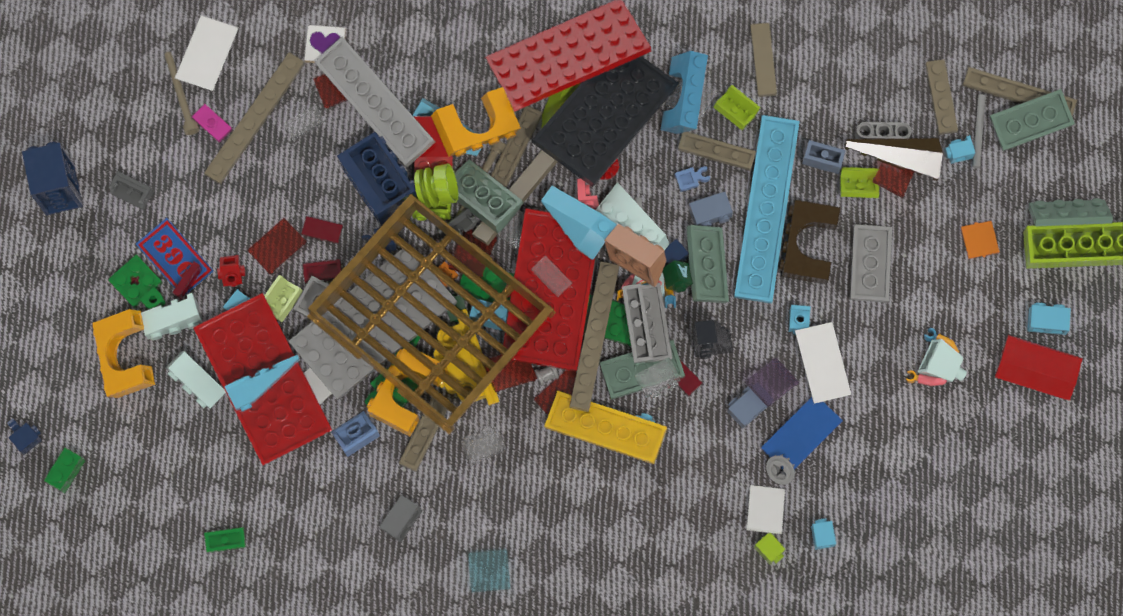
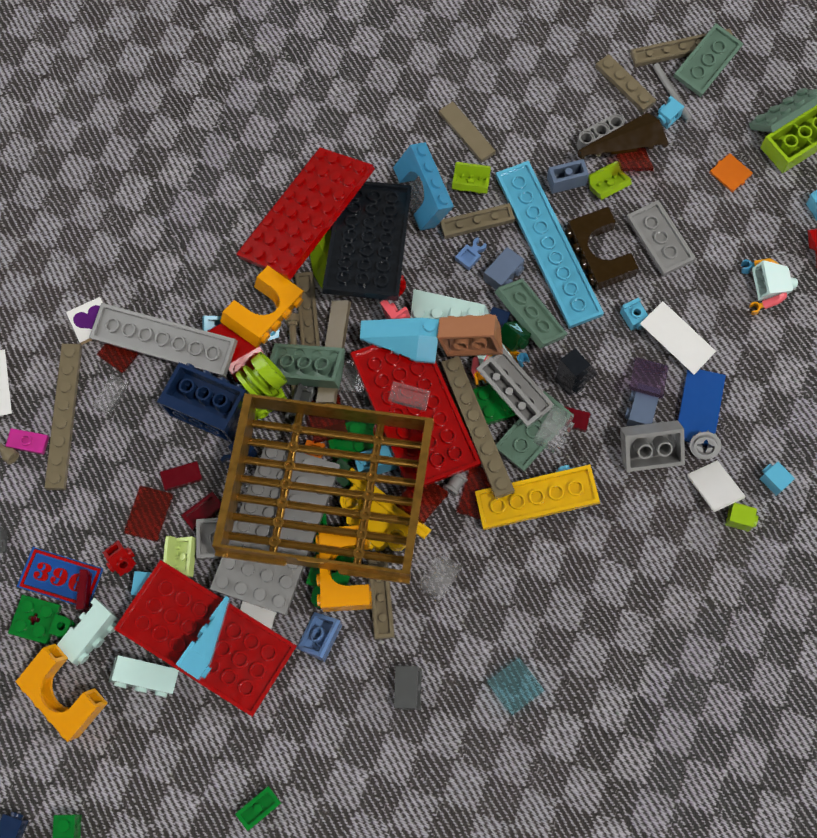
camera: 30 degrees left, 5 degrees down
(732, 443) = (652, 446): none -> light grey brick

